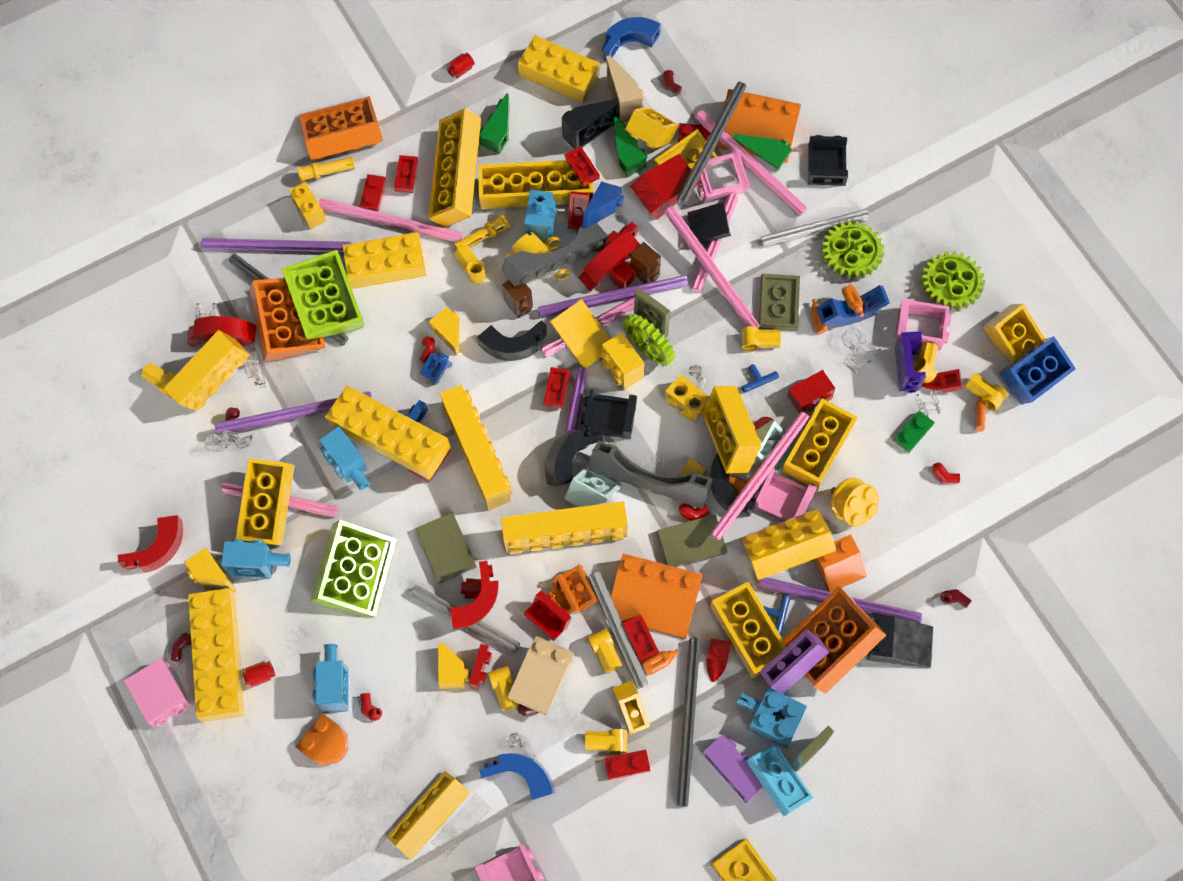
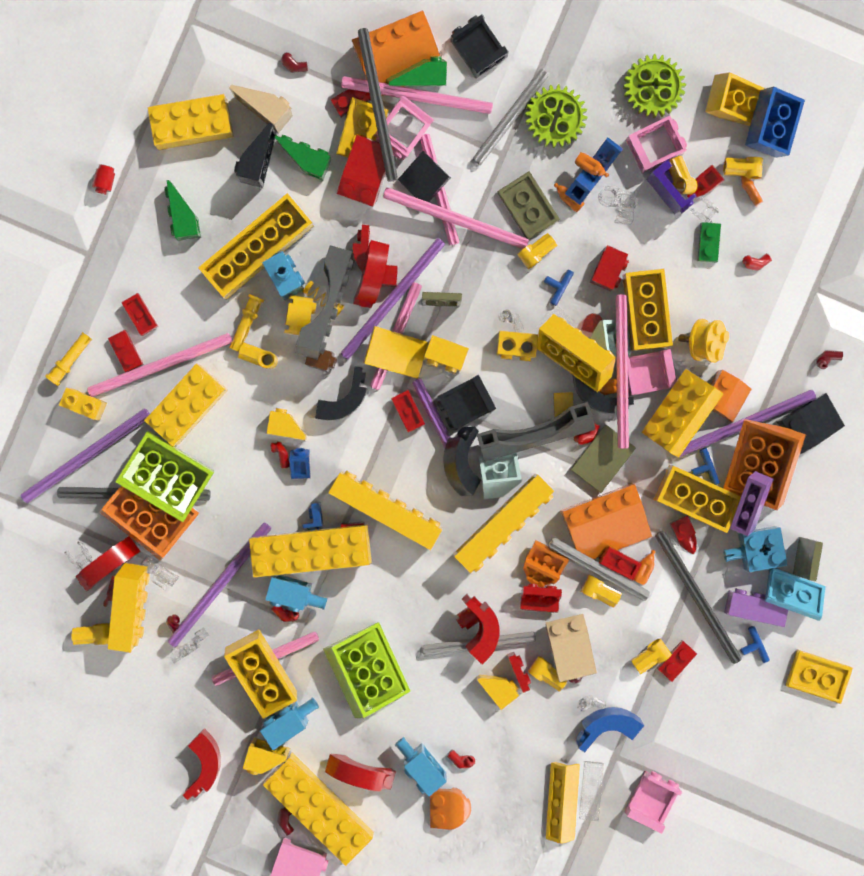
camera: 40 degrees left, 20 degrees up
(258, 673) = (360, 799): red brick -> none
(276, 651) = (358, 774): none -> red arch
(324, 476) = (284, 614): none -> red arm
(340, 128) = (49, 312): orange slope -> none
(445, 547) = (421, 601): olive tile -> none
(454, 168) = (179, 282): yellow brick -> none
(577, 207) = (310, 246): red plate -> none
(582, 166) = (287, 207): red plate -> none
(603, 203) = (326, 224): blue slope -> none
(630, 30) = (224, 35): blue arch -> none
(631, 707) = (650, 619): yellow slope -> none
(640, 331) = (456, 323): lime gear -> none
(646, 262) = (402, 254): reddish brown brick -> none
(651, 127) = (314, 124): yellow brick -> none
(711, 805) = (757, 645): none -> blue piece

